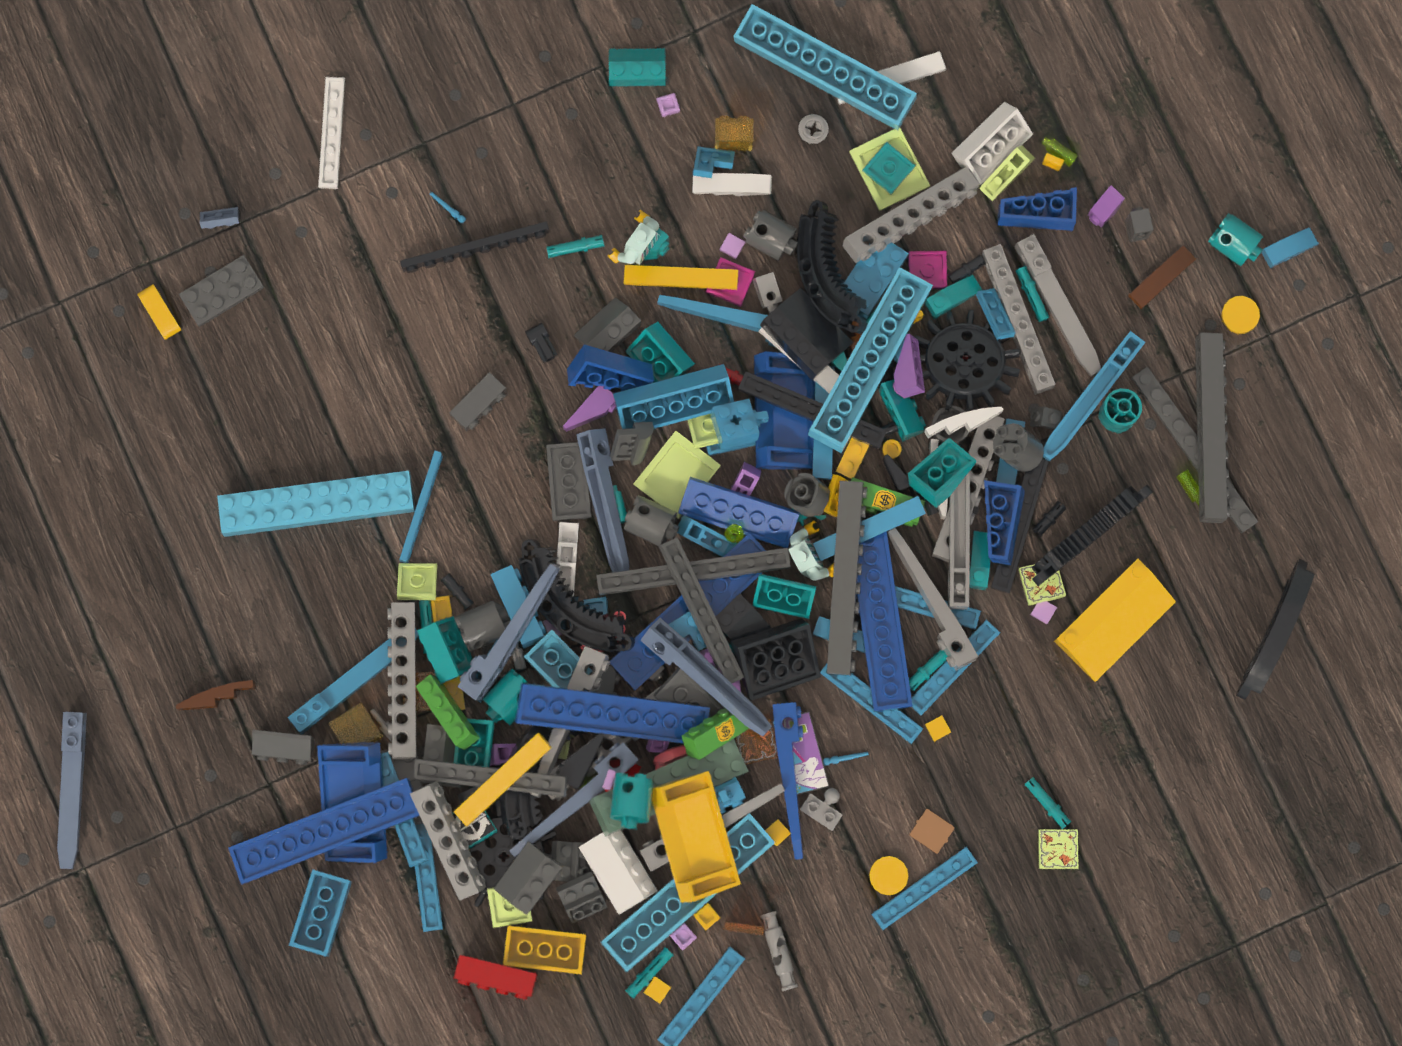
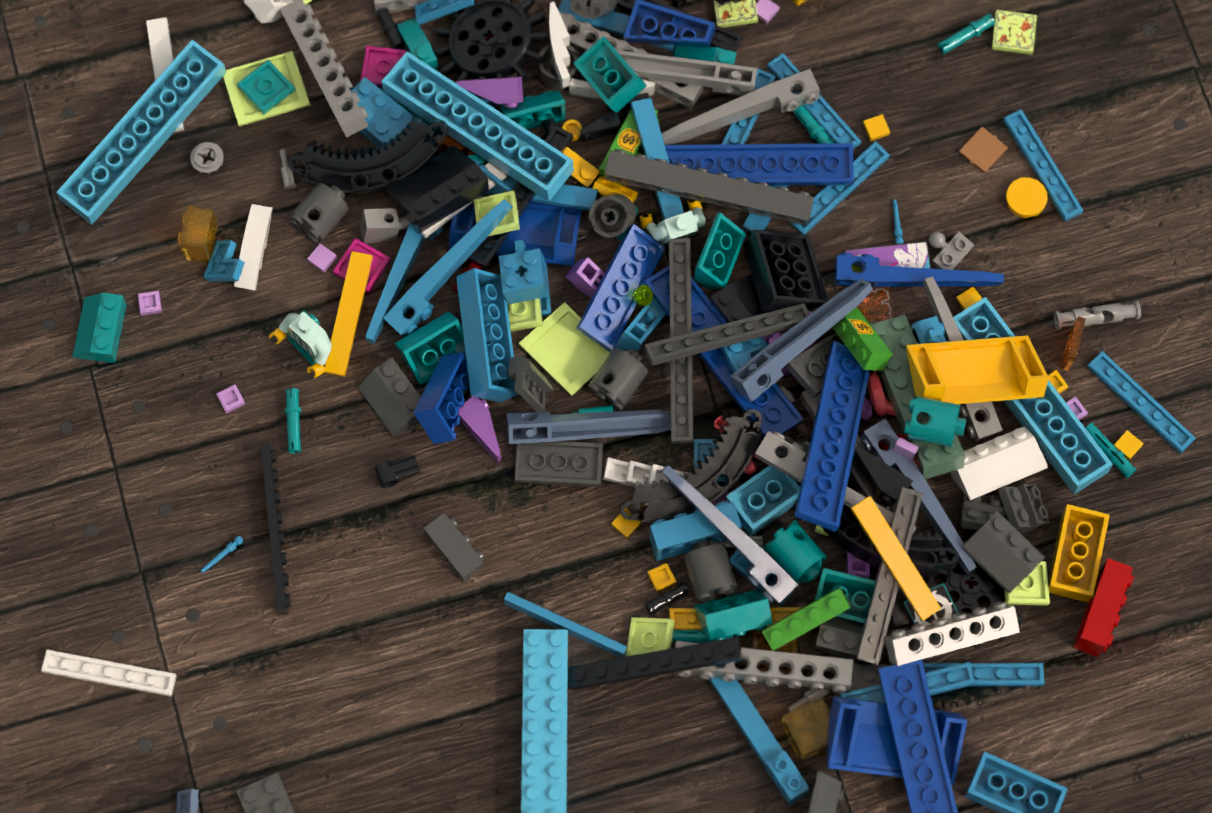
camera: 80 degrees left, 10 degrees down
(391, 586) = (655, 663): none -> black plate
(477, 585) = (661, 577): none -> yellow tile
(516, 547) = (625, 526): none -> yellow tile
(589, 190) = (230, 398): none -> lavender tile
(703, 335) = (427, 286): none -> dark azure piece
(789, 390) = (486, 204): none -> yellowish green tile
(805, 203) = (287, 173): none -> light grey axle
(831, 371) = (492, 176): none -> dark azure piece

